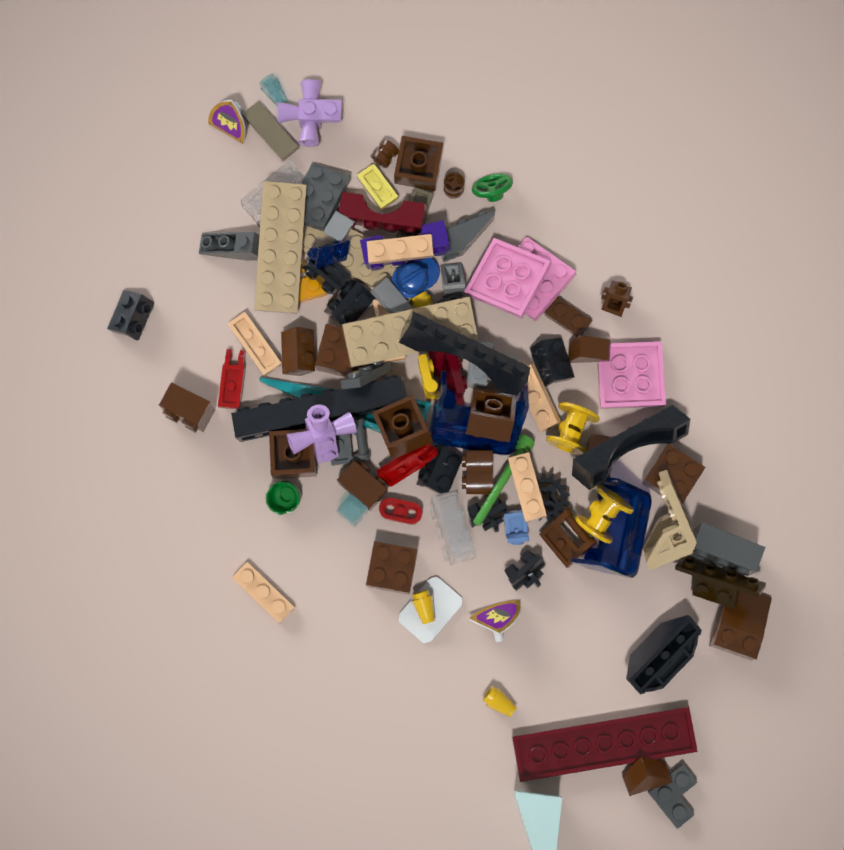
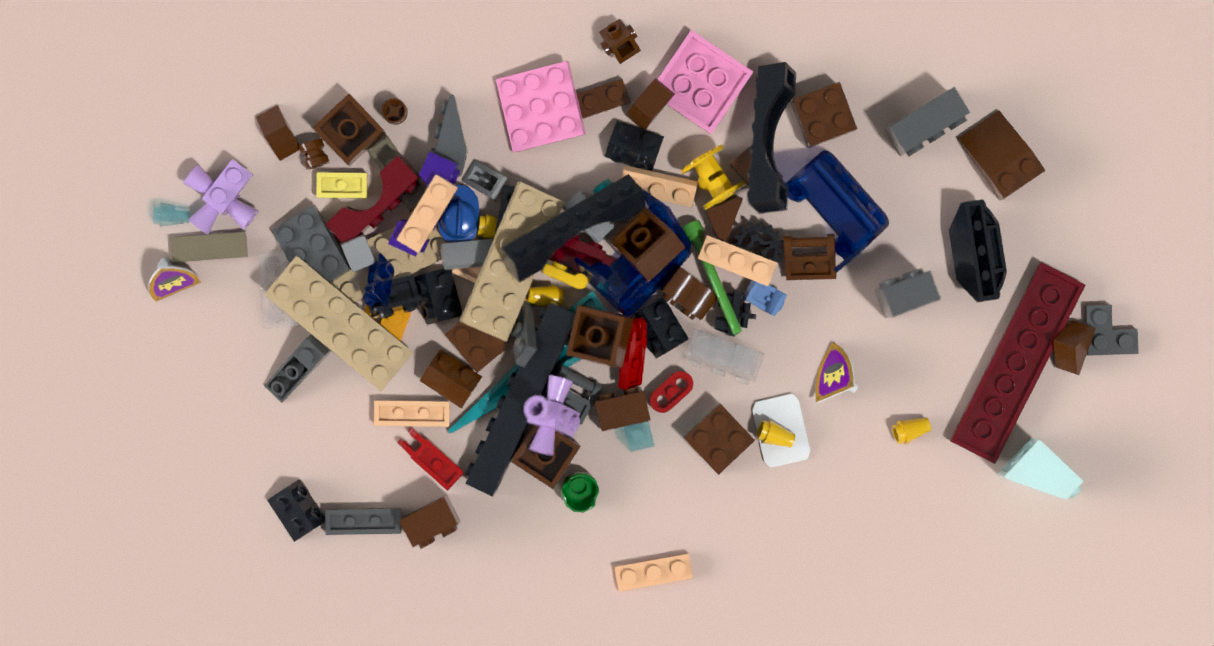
camera: 55 degrees left, 10 degrees up
(153, 362) = (363, 521): none -> dark grey plate
(381, 121) = (278, 133): none -> reddish brown slope
(399, 368) = (544, 295): none -> yellow cone
(493, 189) = (425, 77): green piece -> none
(508, 278) = (526, 130): bright pink plate -> none
(528, 573) = (816, 317): black hips -> none
(551, 457) = (723, 217): none -> reddish brown slope
(595, 623) = (907, 294): none -> dark grey brick
(602, 512) = (812, 209): yellow hose -> none
(665, 541) = (882, 173): tan bracket -> none
(718, 584) = (953, 151): dark brown bracket -> none

